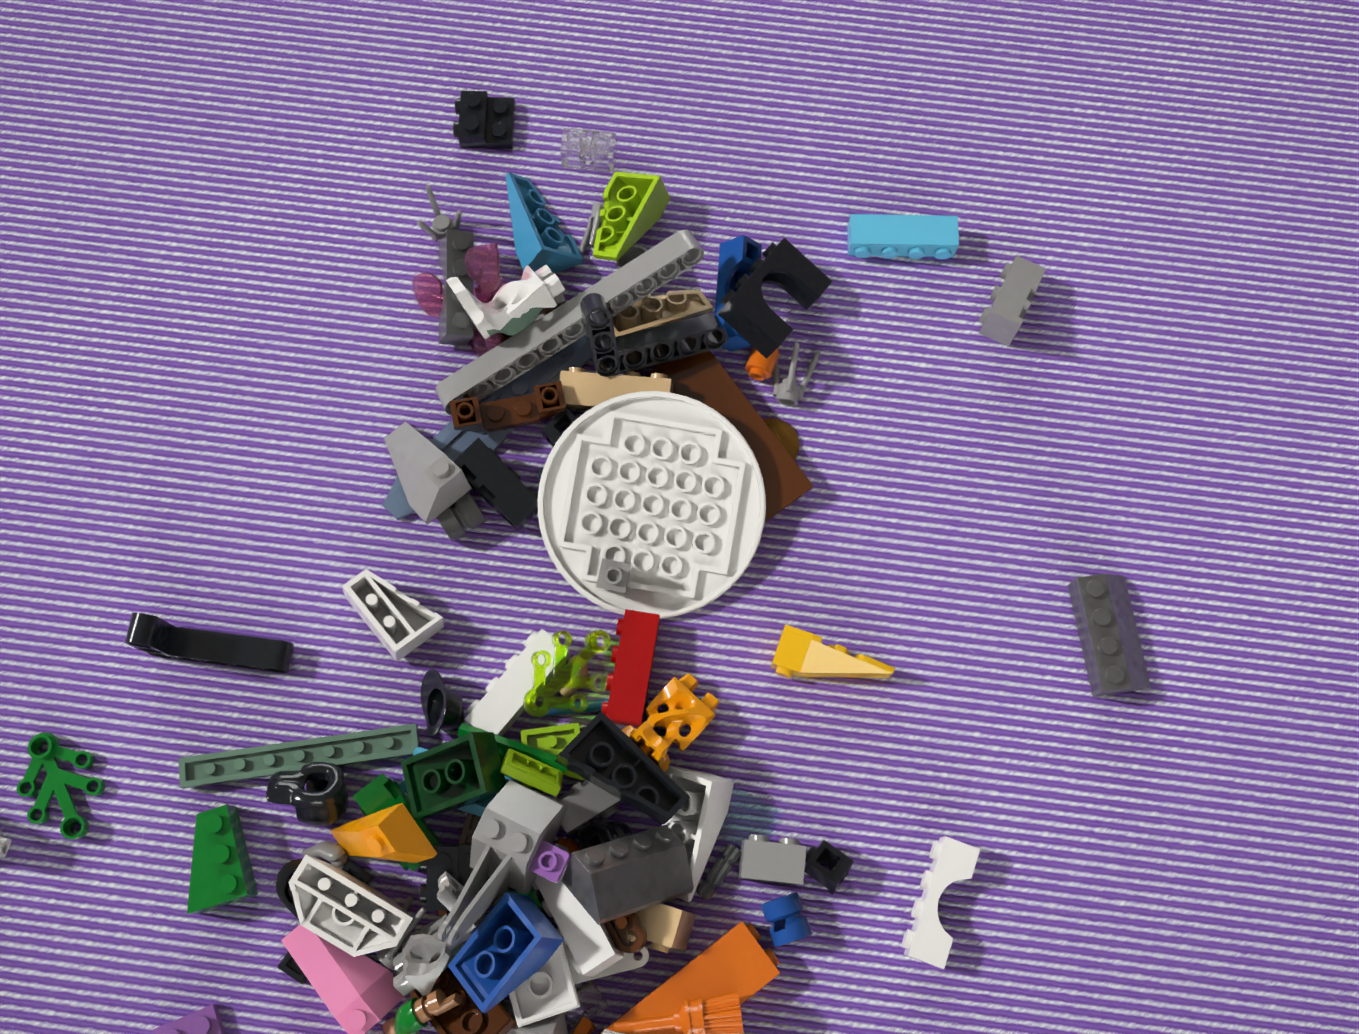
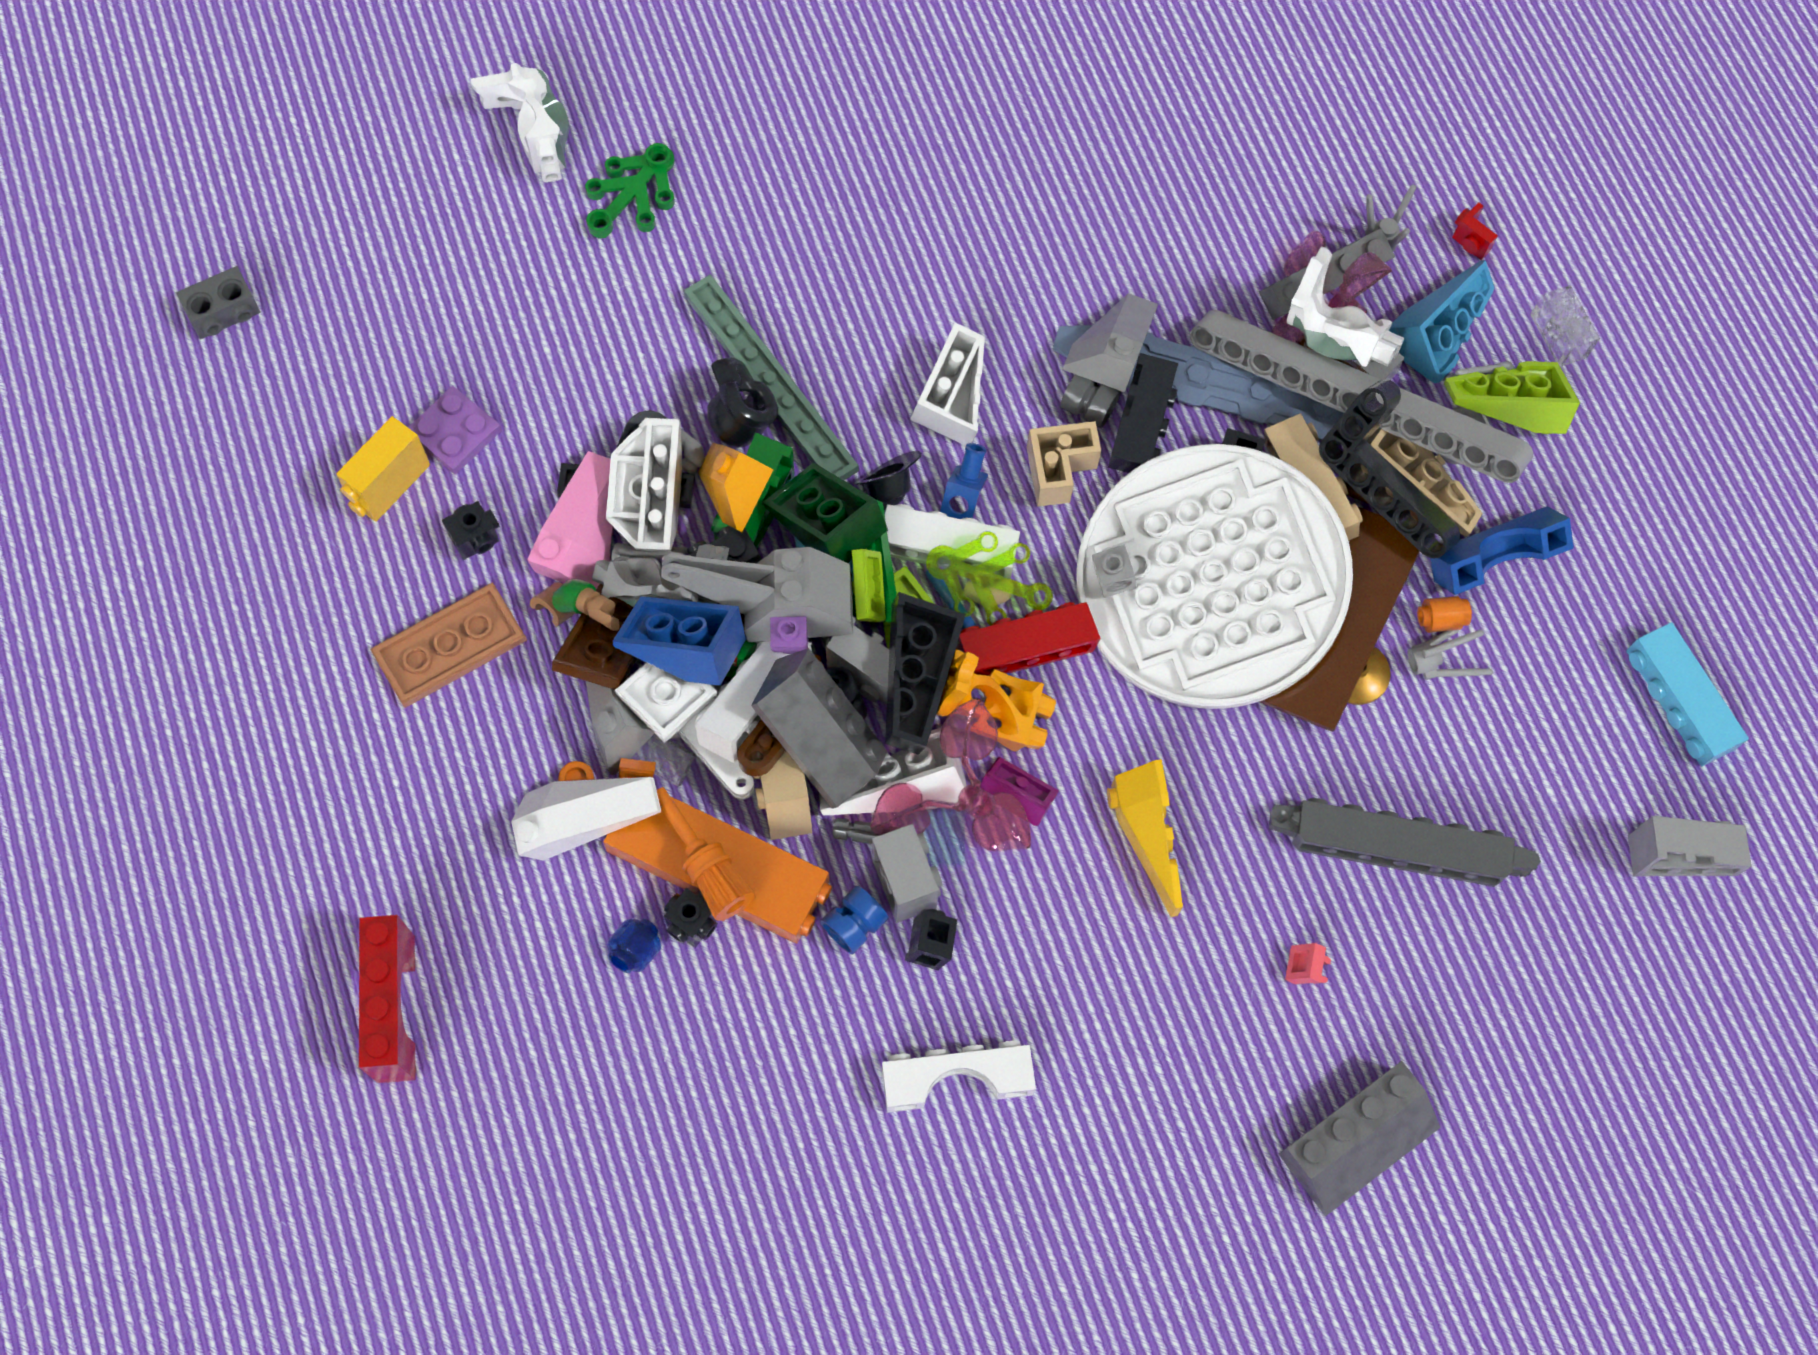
camera: 60 degrees right, 5 degrees down
(165, 640) = (827, 240): black beam -> none
(219, 861) = (633, 360): green wedge -> none
(476, 647) = (966, 482): none -> blue bracket
(480, 168) = (1473, 234): none -> red bracket
(484, 121) = (1528, 212): black plate -> none
(491, 565) = (1057, 453): none -> tan brick
(509, 412) = (1223, 389): reddish brown slope -> none
(741, 738) = (1030, 791): none -> magenta slope
(749, 312) = (1560, 576): black arch -> none
(763, 768) = (998, 818): none -> clear pink plant
(916, 486) = (1402, 842): none -> dark grey hinge
(972, 602) = (1306, 964): none -> coral tile

